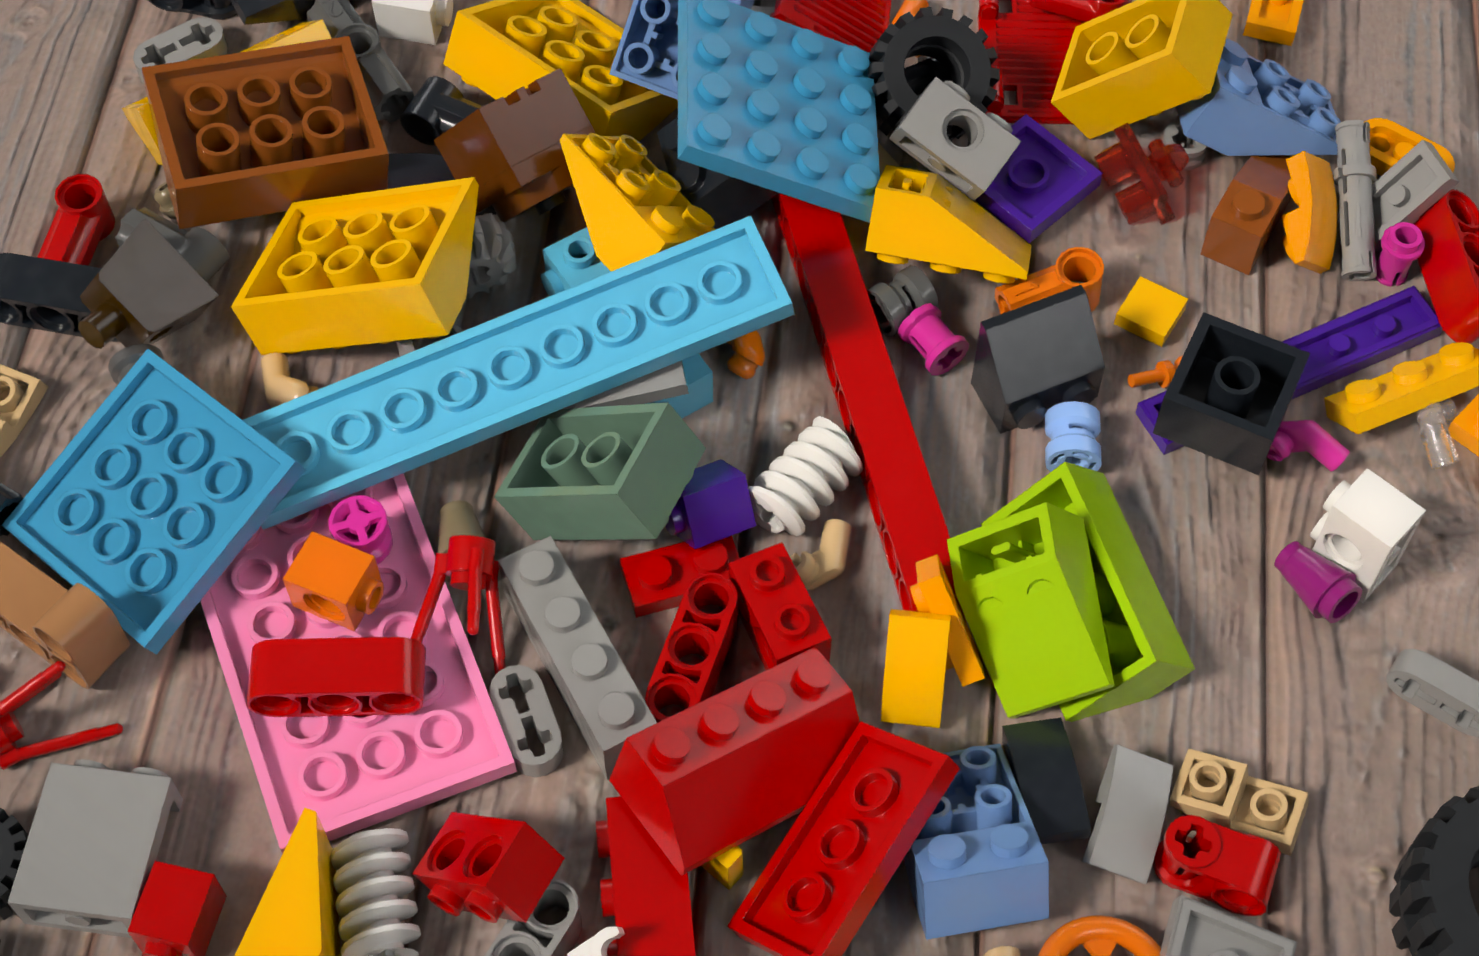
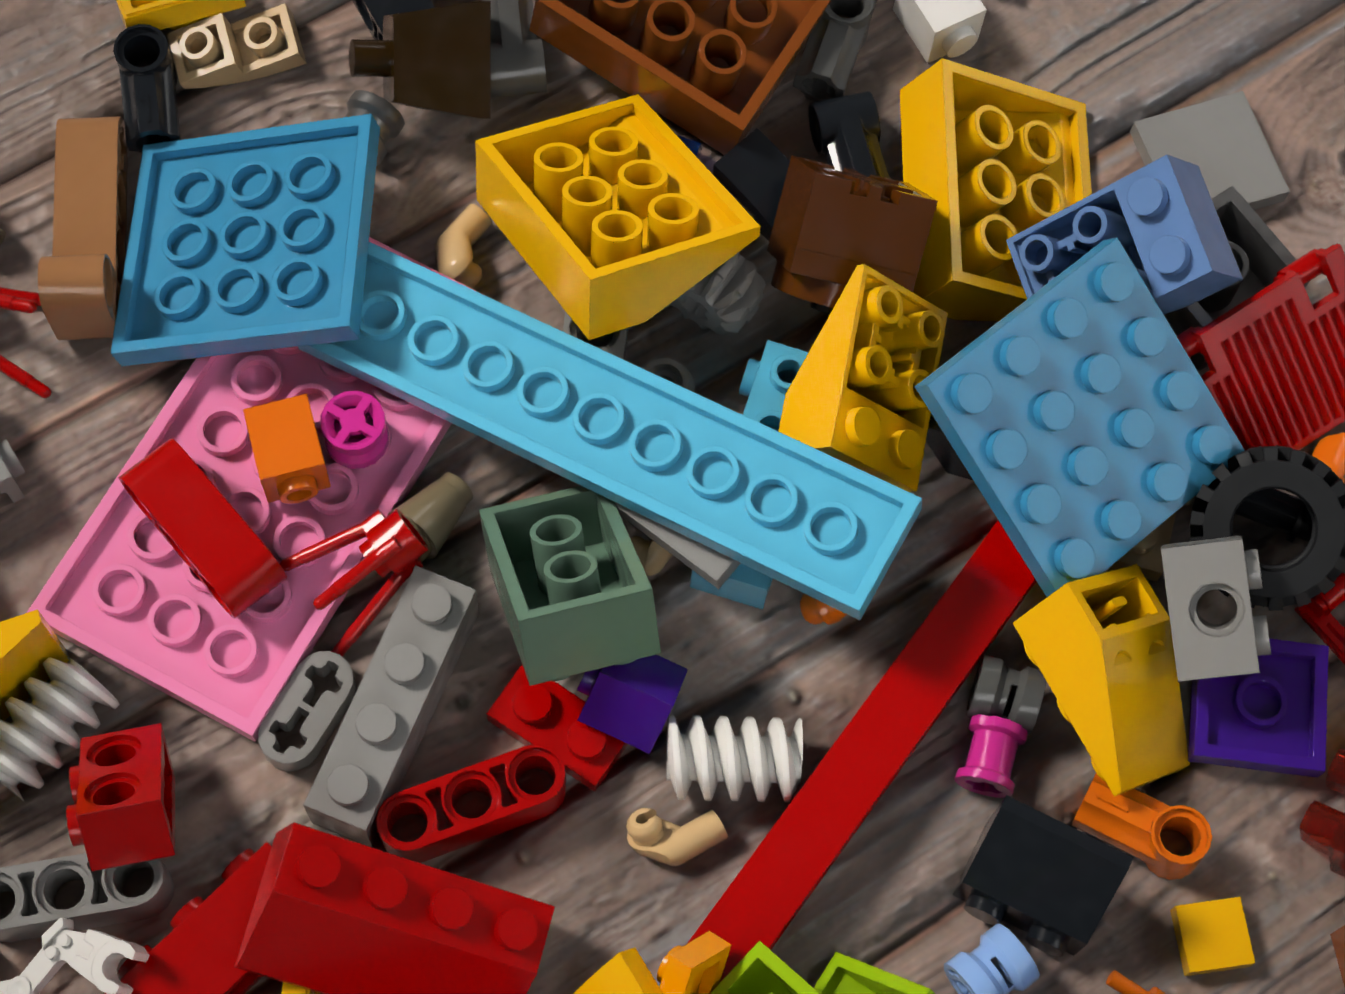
camera: 45 degrees right, 10 degrees up
(777, 607) = (575, 844): red brick -> none

